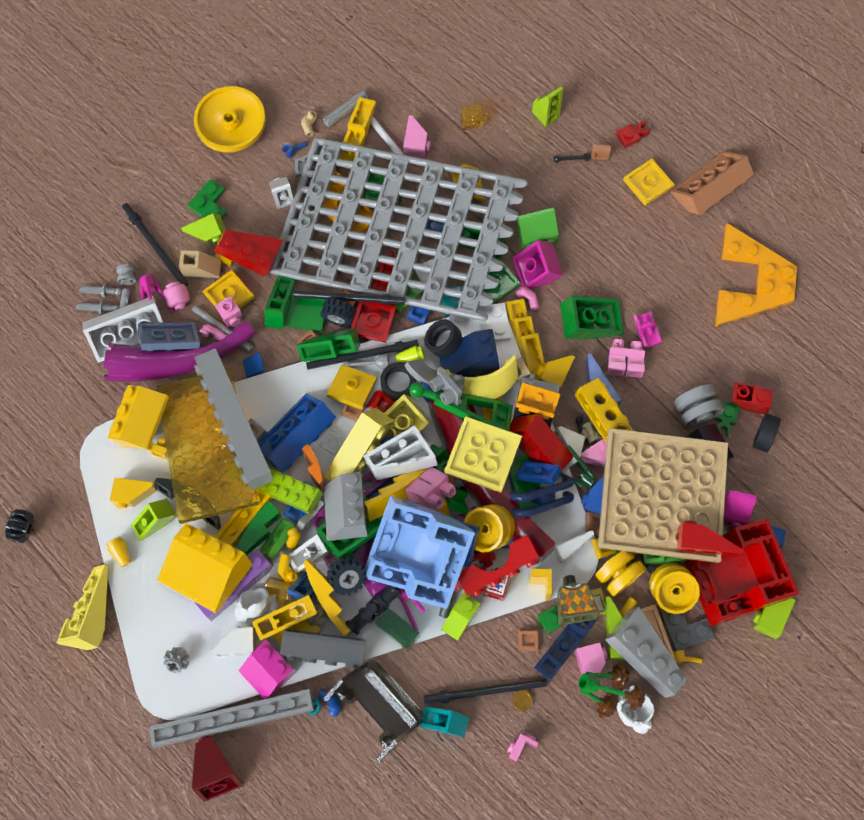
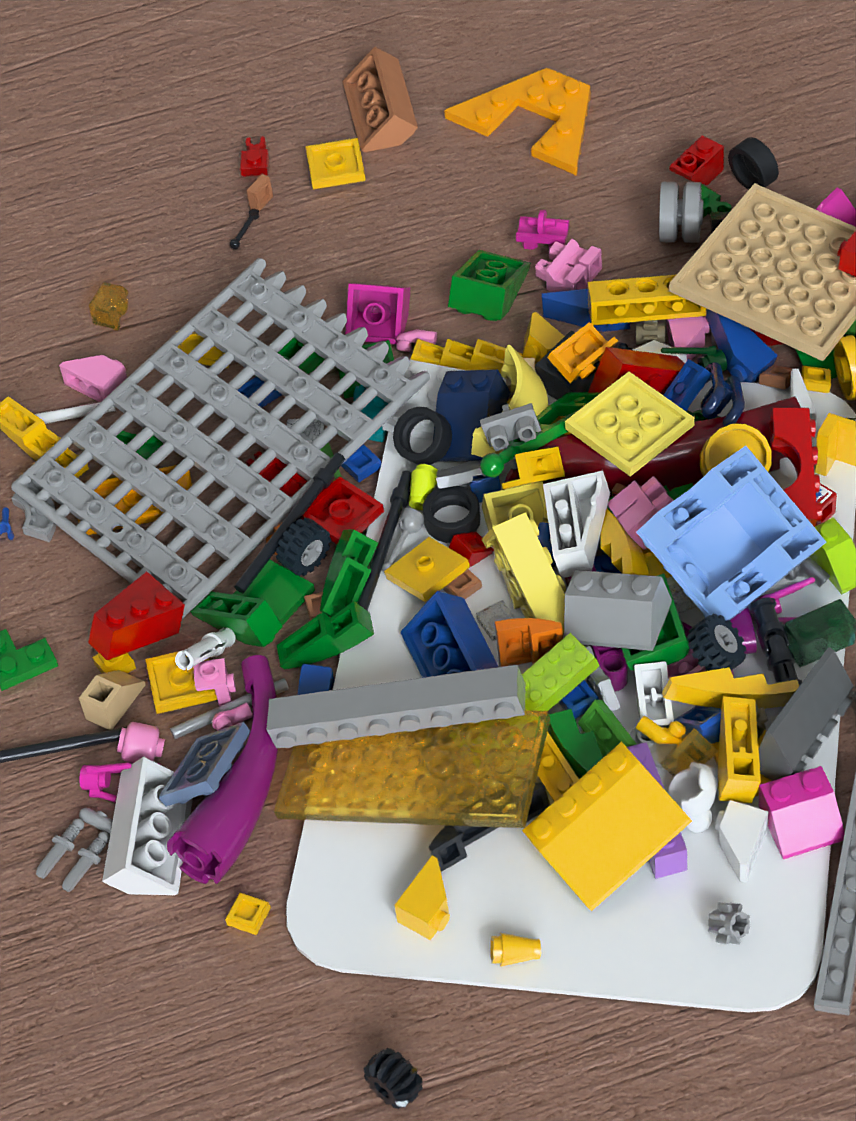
camera: 60 degrees left, 20 degrees down
(88, 620) = (596, 1038): light yellow wedge -> none
(98, 404) = (248, 913): none -> yellow tile
(126, 274) = (59, 800): light grey wheel -> none
(138, 417) = (316, 841): yellow slope -> none
(153, 518) = (487, 886): lime slope -> none
(159, 449) = (380, 839): yellow tile -> none
(207, 228) = (61, 665): lime slope -> none
(249, 299) = (211, 645): none -> white pin
(281, 192) = (66, 553): white slope -> none
(284, 355) = (325, 637): none -> green slope
(294, 537) = (625, 713): yellow arm -> none
(426, 416) = (537, 467): none -> yellow panel
(537, 226) = (329, 281): bright green slope -> none
(548, 107) = (156, 214): lime slope -> none

